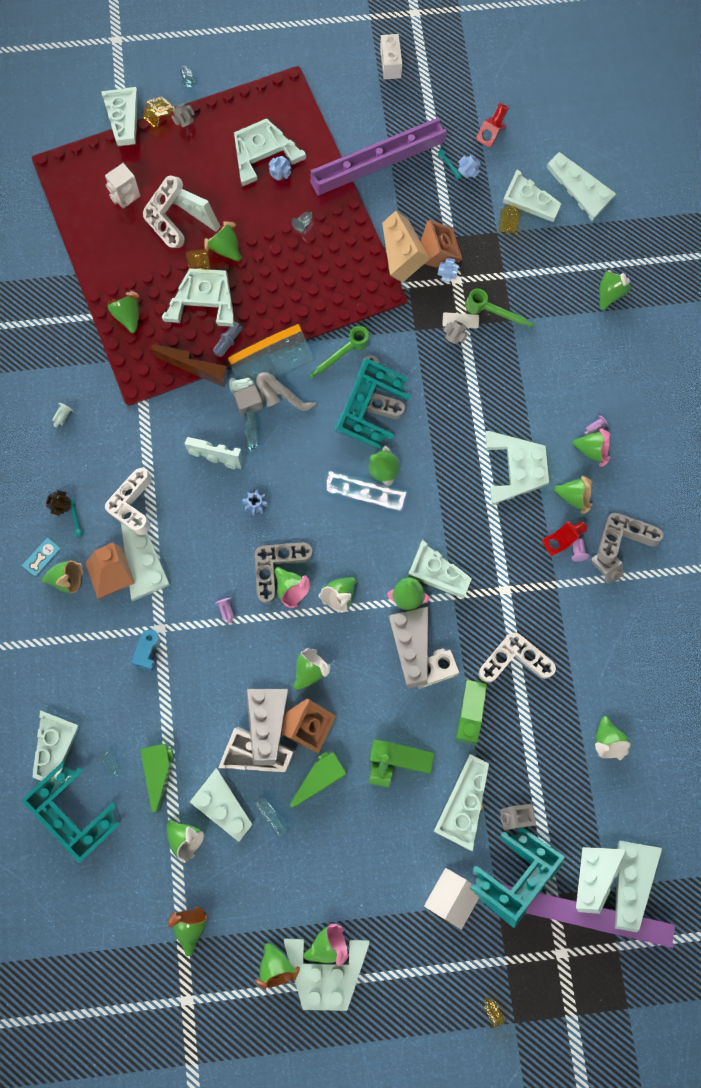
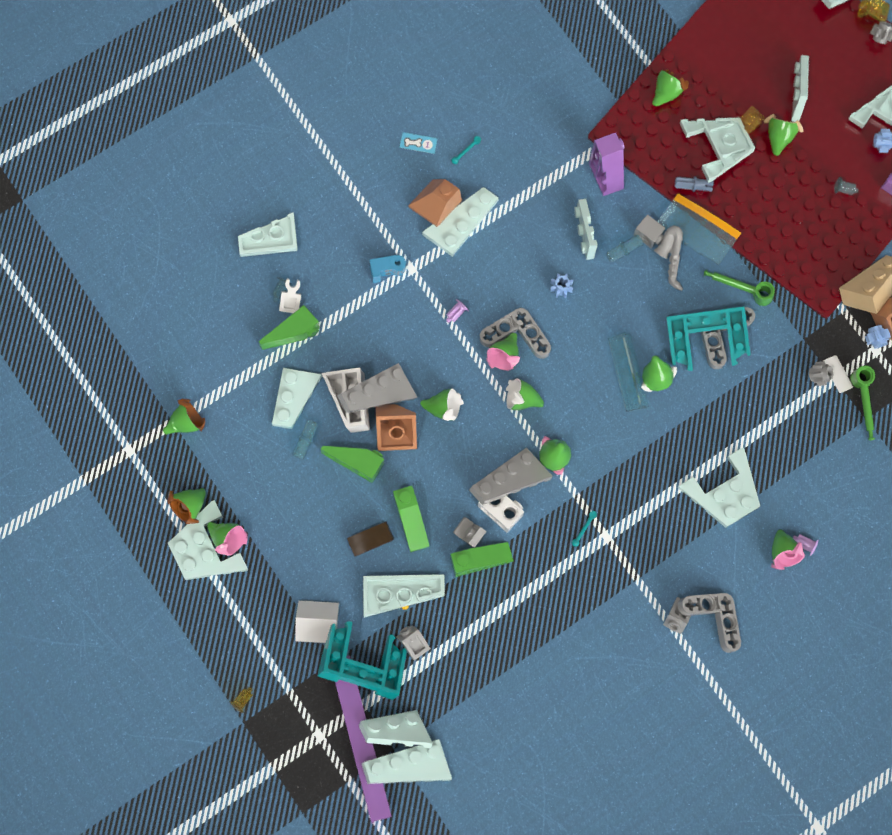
camera: 60 degrees right, 0 degrees up
(58, 502) = (470, 129): dark brown gear -> none
(61, 415) = (547, 89): light aqua piece -> none
(64, 576) = (411, 170): hat -> none
(74, 840) = (206, 297): teal wedge -> none
(122, 186) = (780, 20): white brick -> none
(123, 507) = (496, 182): white beam -> none
(126, 759) = (290, 299): none -> white plate
(159, 211) = (777, 62): white beam -> none
(166, 399) = (608, 163): none -> medium lavender wedge
(183, 359) = (656, 189): reddish brown slope -> none
(183, 839) = (250, 379): hat -> none
(237, 385) = (658, 215): light aqua piece -> none
(381, 773) = (386, 507): bright green piece -> none
(401, 805) = (370, 539): none -> dark brown slope
(437, 572) = (588, 470): light aqua wing -> none
(443, 709) = (469, 532): none -> light grey bracket
(479, 591) = (592, 515): none -> teal hinge
(510, 652) = (552, 568): white beam -> none
(565, 537) = (684, 565): red bracket -> none
(576, 493) = (731, 555): bright green hat -> none
(579, 551) = (678, 583): lavender piece -> none
(611, 741) = (520, 689): hat -> none

